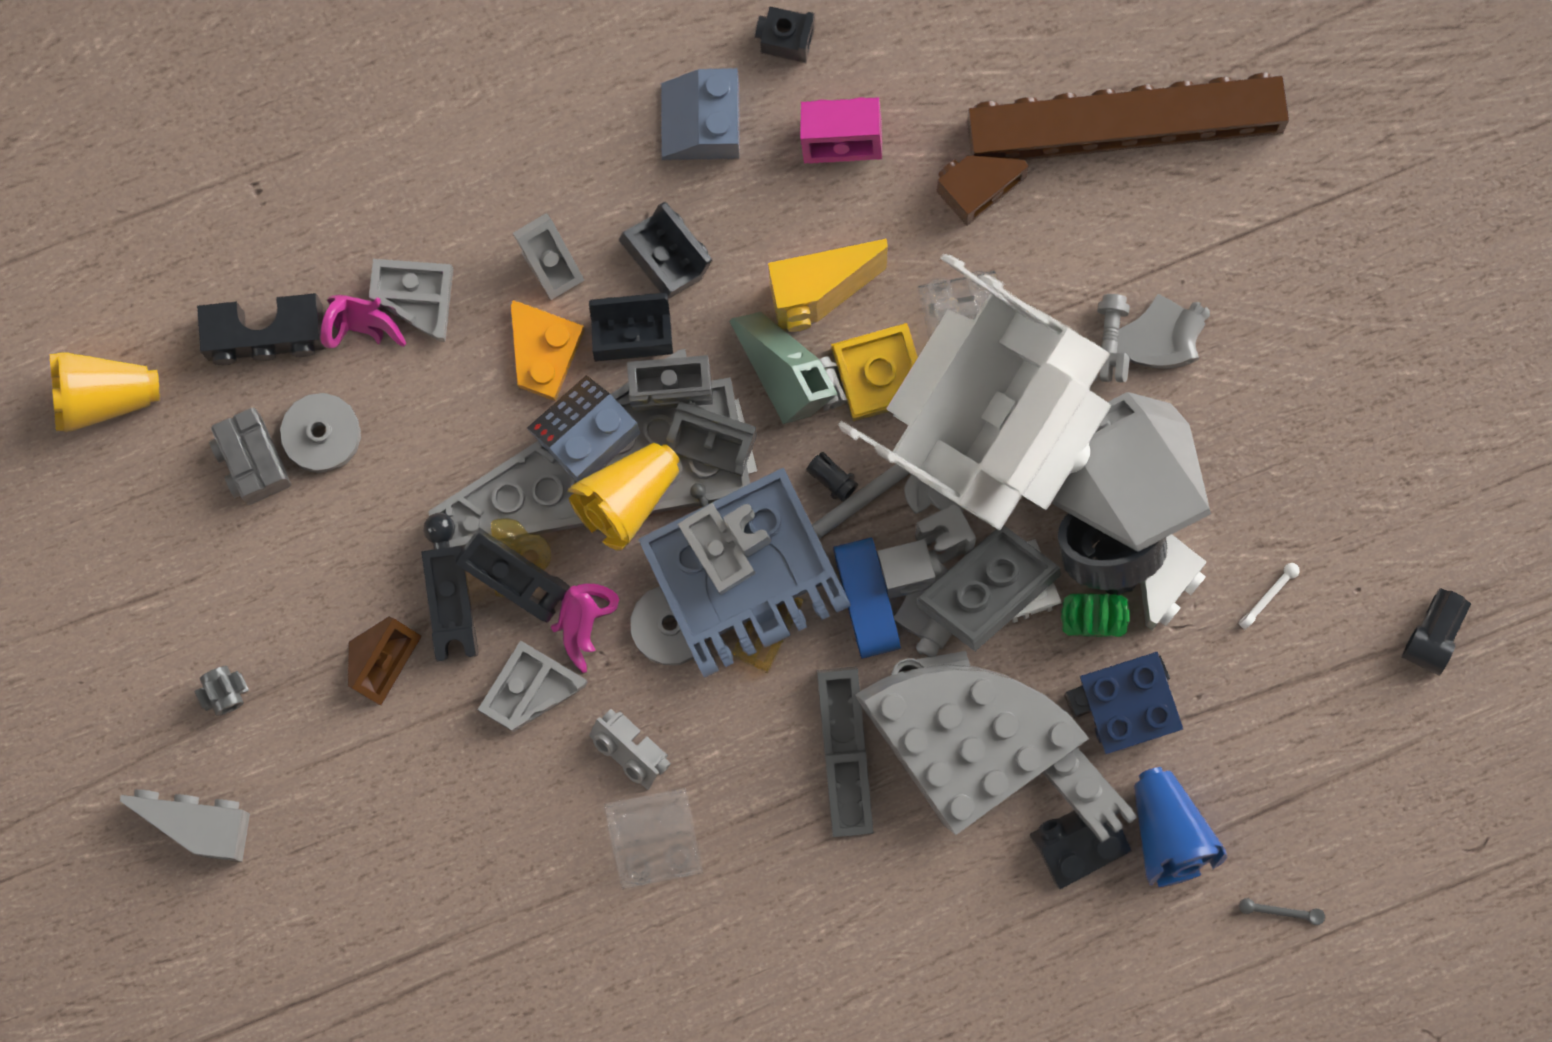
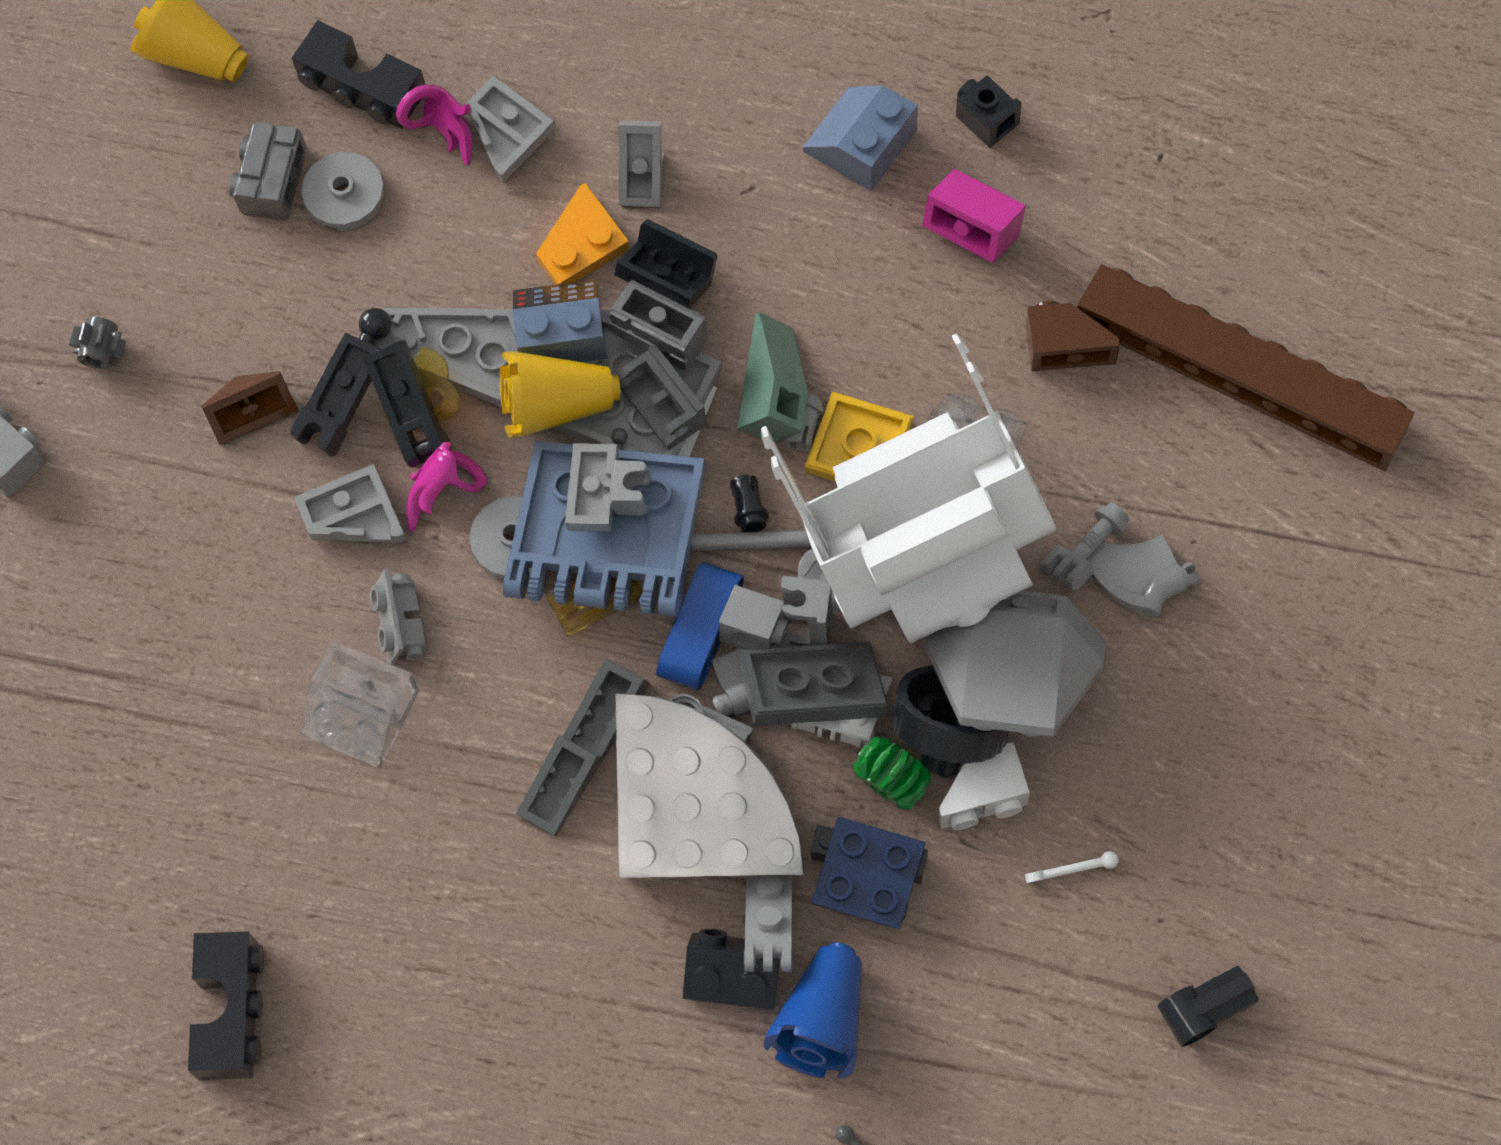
camera: 35 degrees right, 10 degrees down
(667, 251) = (745, 224): black bracket -> none
(817, 283) = (859, 329): yellow slope -> none

